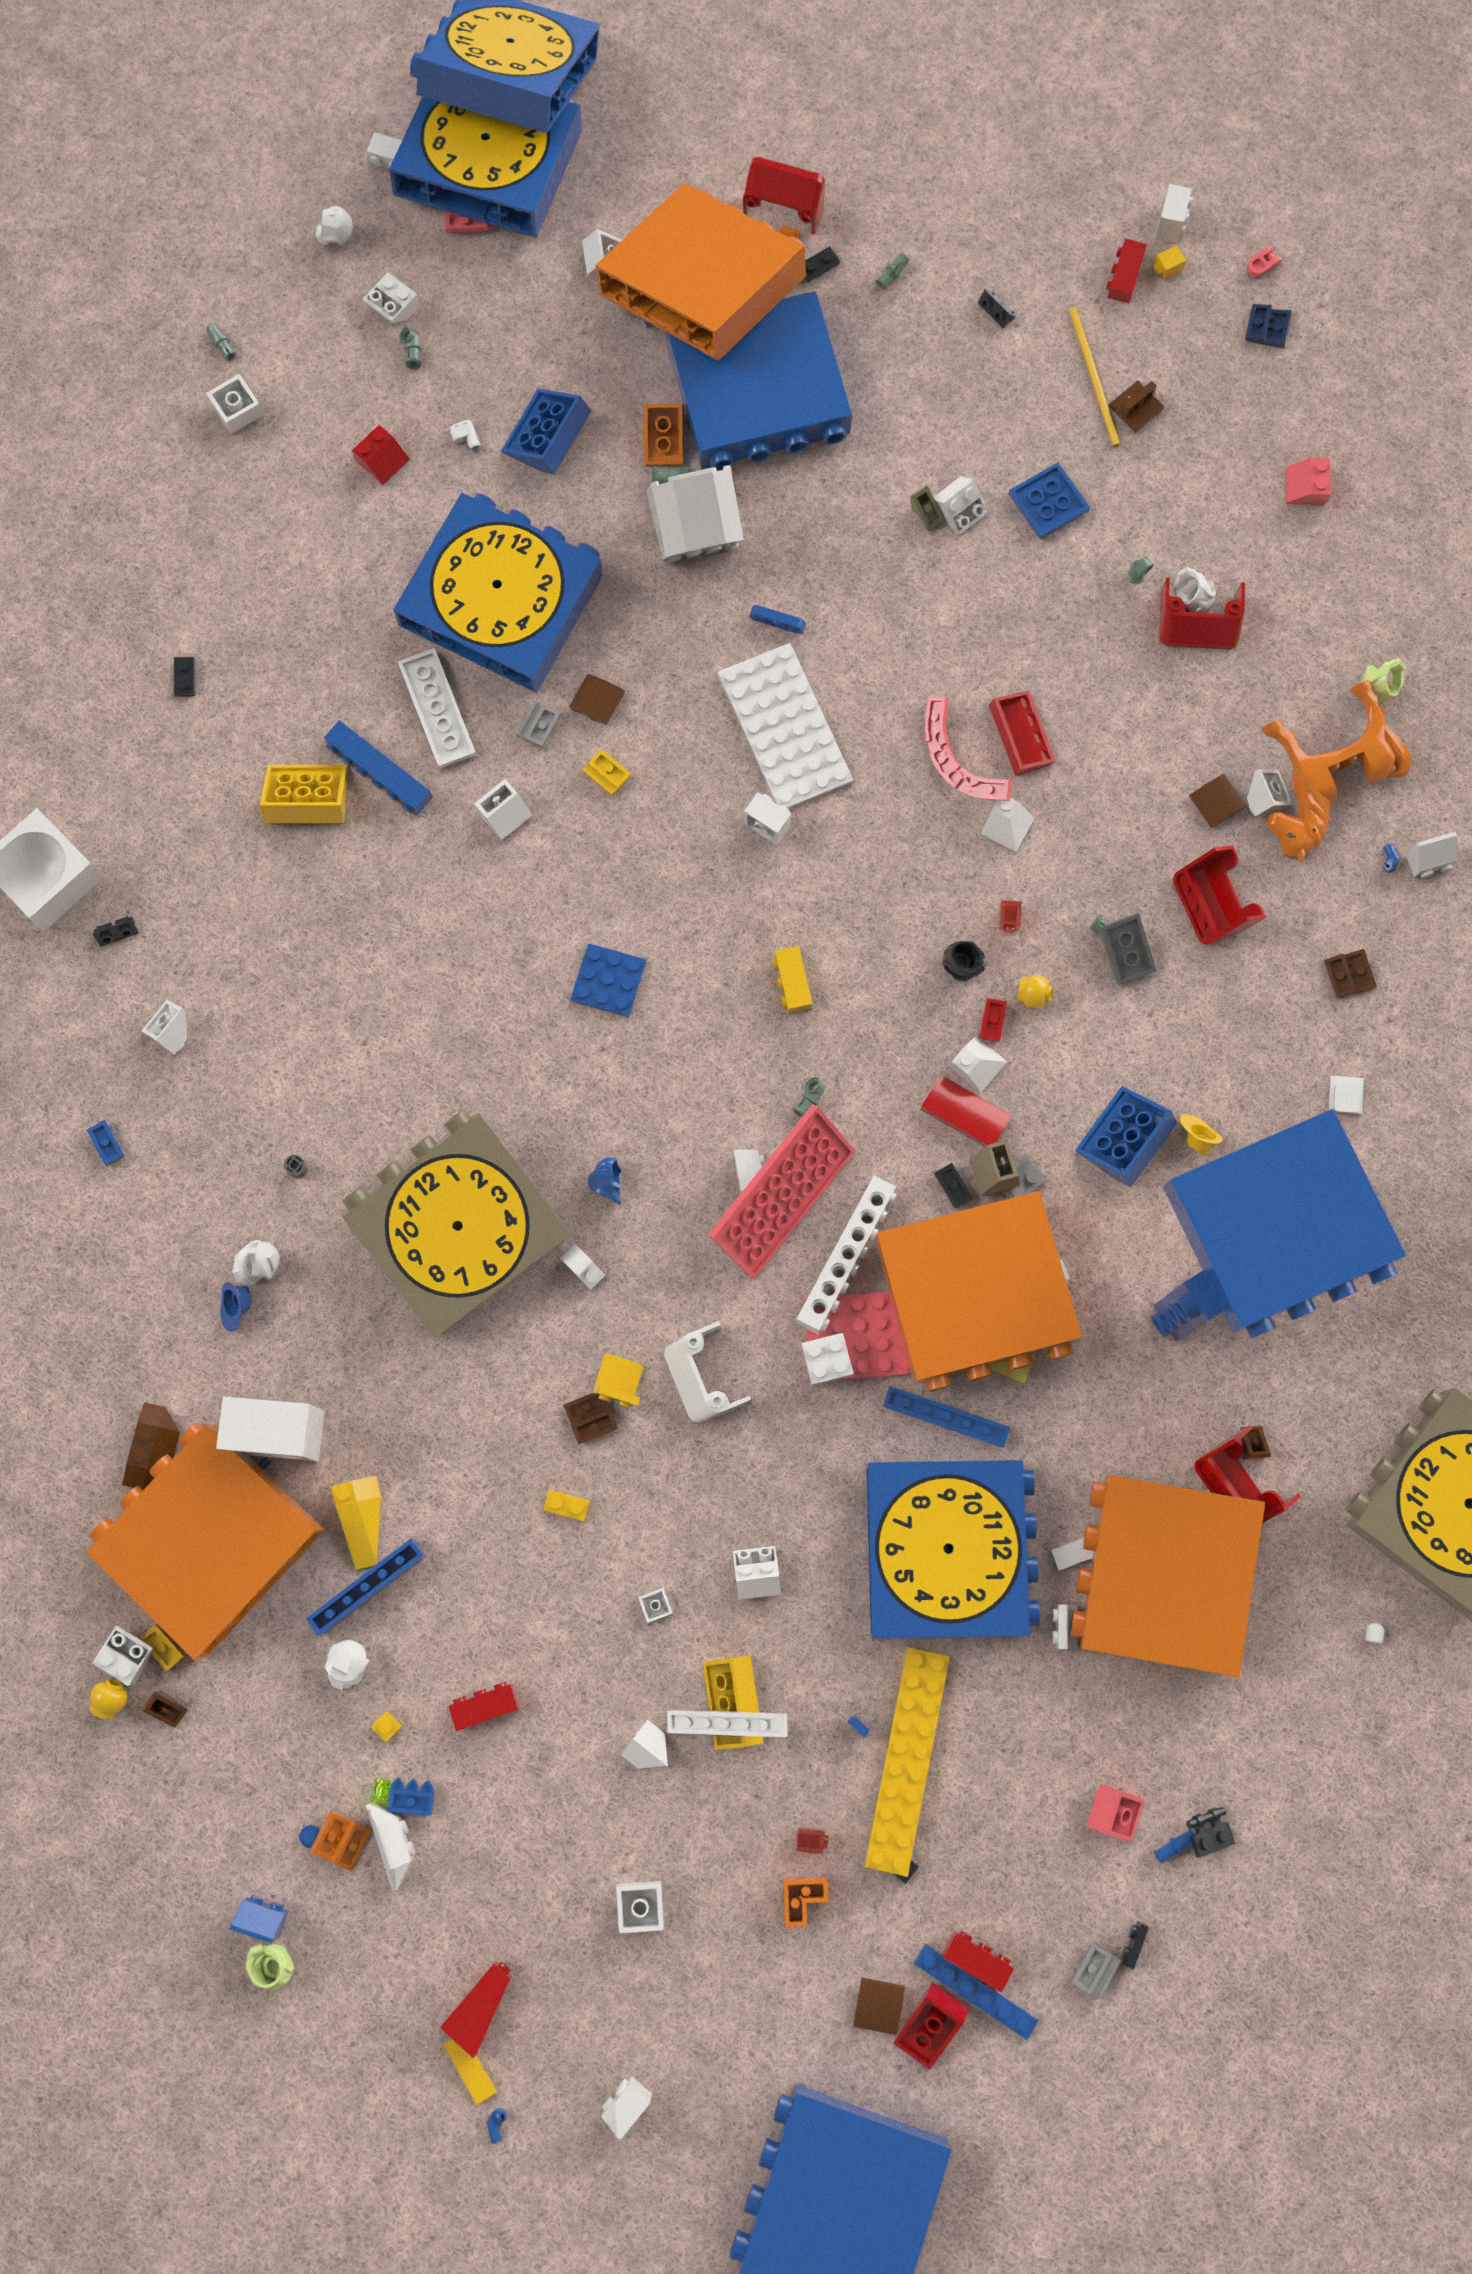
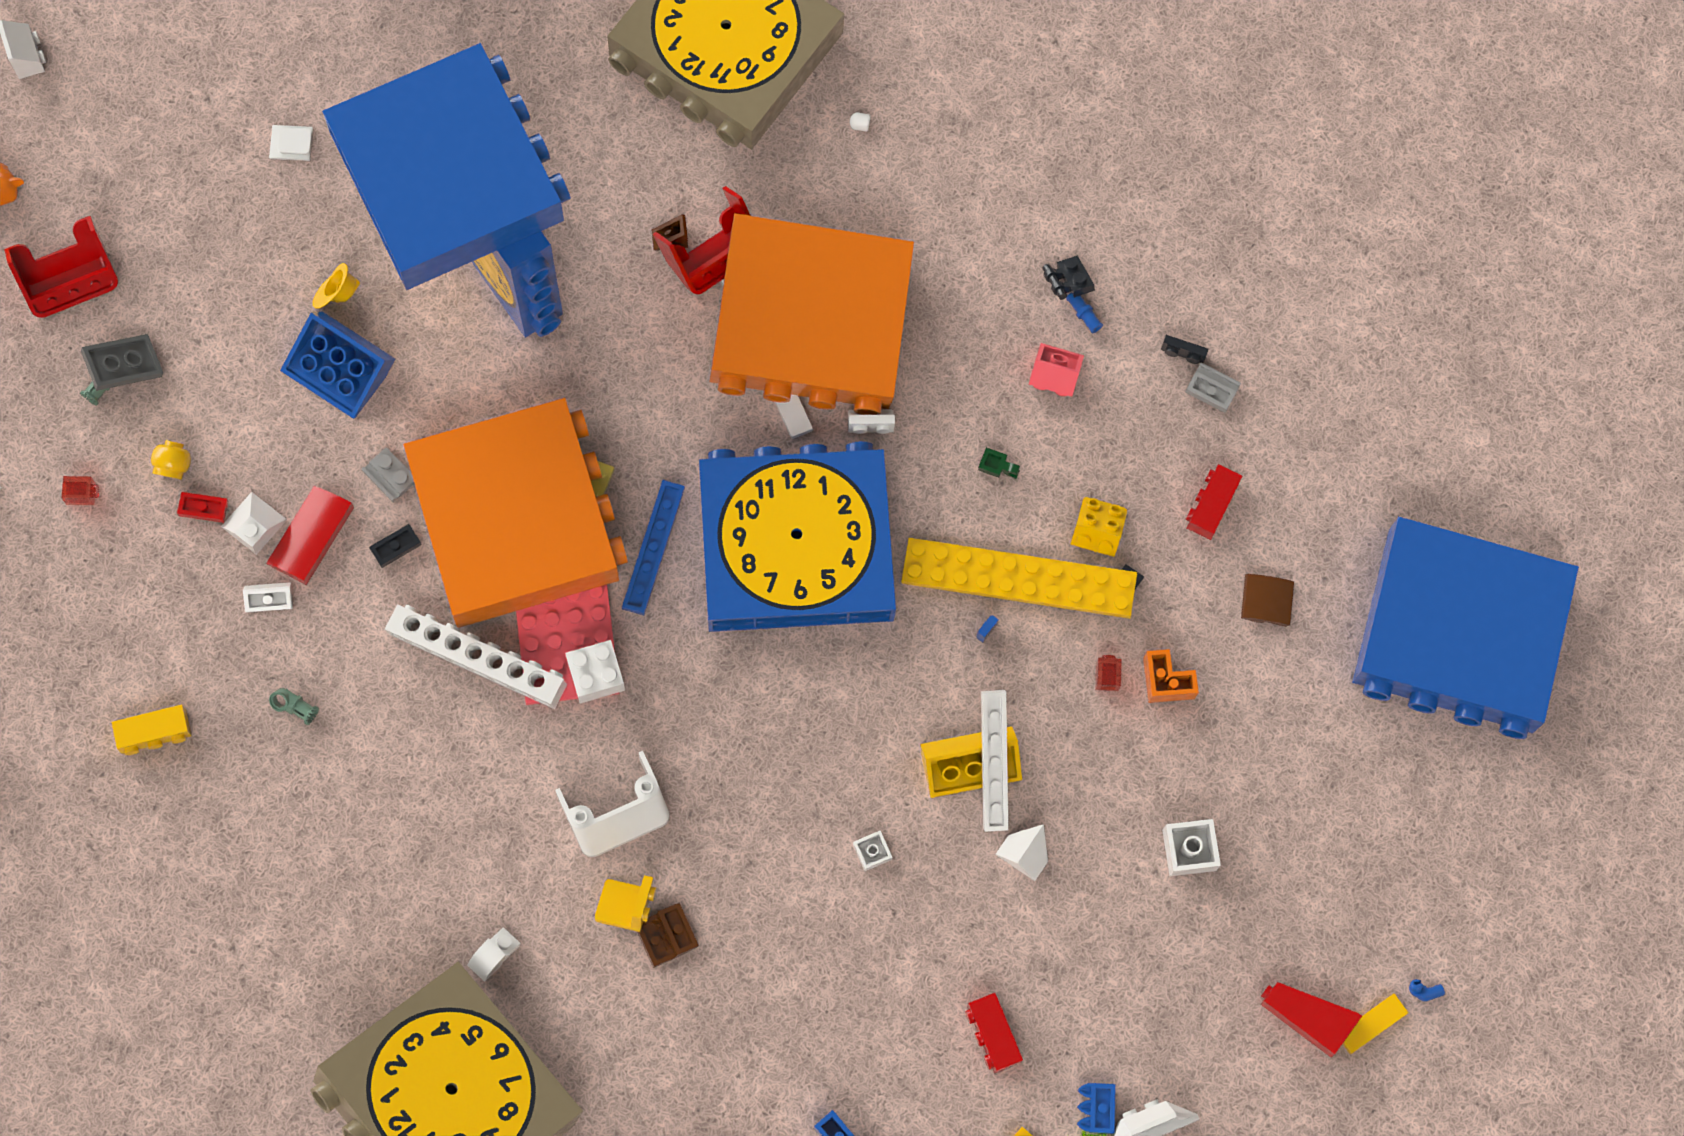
camera: 100 degrees left, 5 degrees down
(566, 1505) = (767, 956): yellow plate -> none
(606, 1180) = (390, 933): blue hair -> none
(608, 980) = (147, 945): blue plate -> none
(626, 2106) = (1393, 851): white slope -> none
(747, 1165) = (382, 766): white slope -> none
(756, 1572) = (831, 741): white slope -> none
(782, 1192) = (405, 725): coral plate -> none
(910, 1076) = (268, 597): none -> white slope
(931, 2026) = (1282, 546): red slope -> none
(957, 1843) = (1099, 526): none -> yellow bracket
(963, 960) = (134, 540): black helmet -> none
(976, 1992) = (1243, 505): blue plate -> none
(995, 1169) = (376, 499): dark tan slope -> none
(1021, 1745) = (995, 463): none -> dark green plate
(1350, 973) = (154, 136): reddish brown slope -> none
(1392, 858) = (22, 91): blue arm -> none

